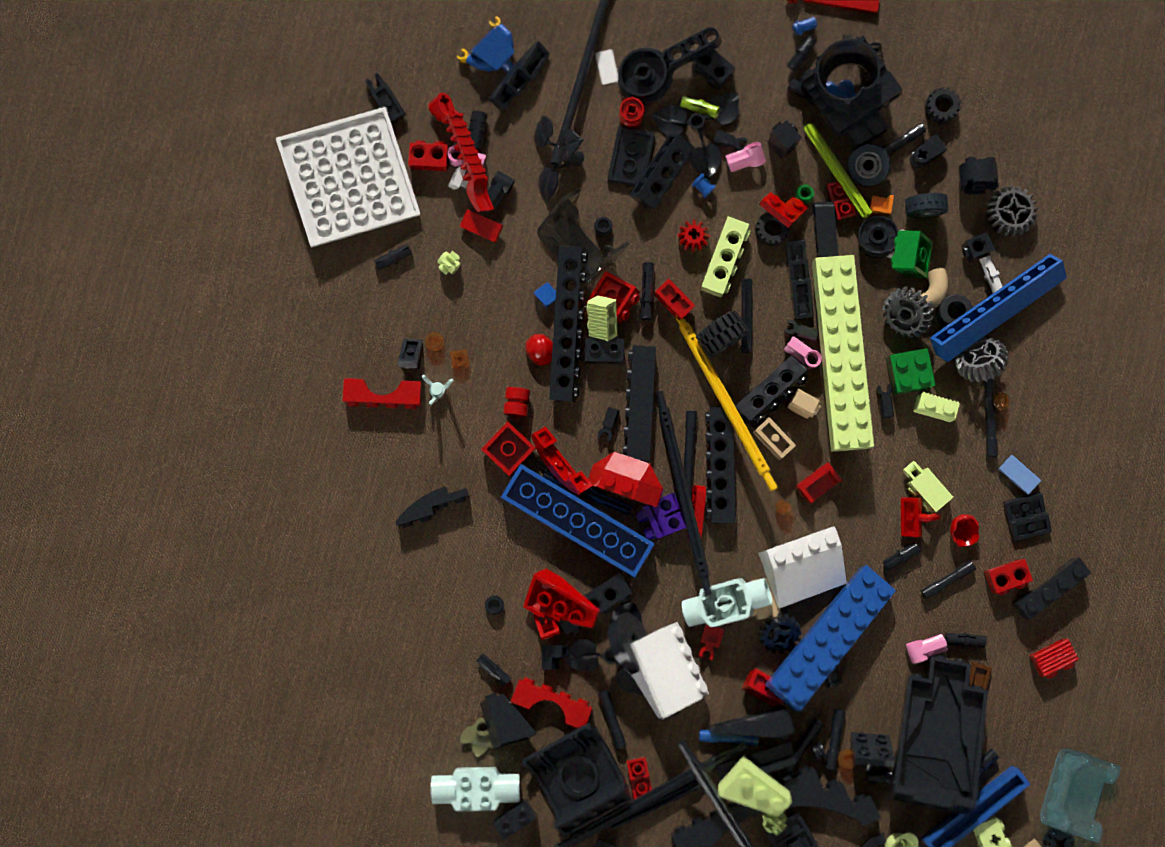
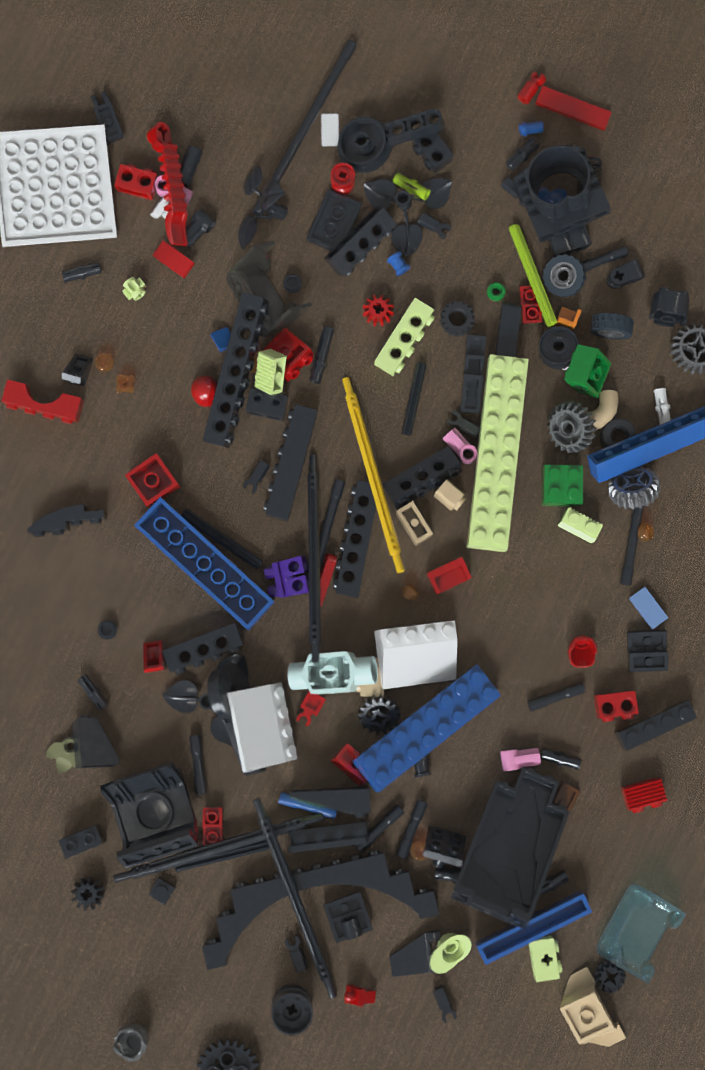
camera: 10 degrees right, 0 degrees up
(436, 389) = (95, 409): light aqua plant -> none
(475, 788) = (50, 804): light aqua brick -> none
(492, 50) = (220, 91): blue torso -> none
(516, 403) = (170, 436): red wheel -> none
(519, 75) = (245, 118): black slope -> none
(528, 694) = (121, 722): red arch -> none
(551, 656) = (152, 689): black piece -> none
(556, 598) = (167, 635): red wedge -> none
(557, 464) = (197, 504): red slope -> none
(628, 478) = (262, 532): red wedge -> none
(674, 300) = (345, 369): red brick -> none
(722, 333) = (384, 410): black tyre -> none
(750, 156) = (451, 244): bright pink piece -> none
(754, 788) = (319, 859): yellowish green wedge -> none
(774, 823) = (333, 896): yellowish green gear -> none
(784, 138) = (486, 233): black brick -> none
(785, 212) = (471, 305): red plate -> none
(818, 751) = (392, 837): black bush -> none
(885, 402) = (532, 511): black bar -> none
(901, 556) = (515, 664): black axle -> none
(912, 517) = (534, 627): red plate -> none
(927, 487) = (554, 602): yellowish green brick -> none
(947, 95) = (644, 242): black tyre -> none
(983, 242) = (662, 377): black brick -> none

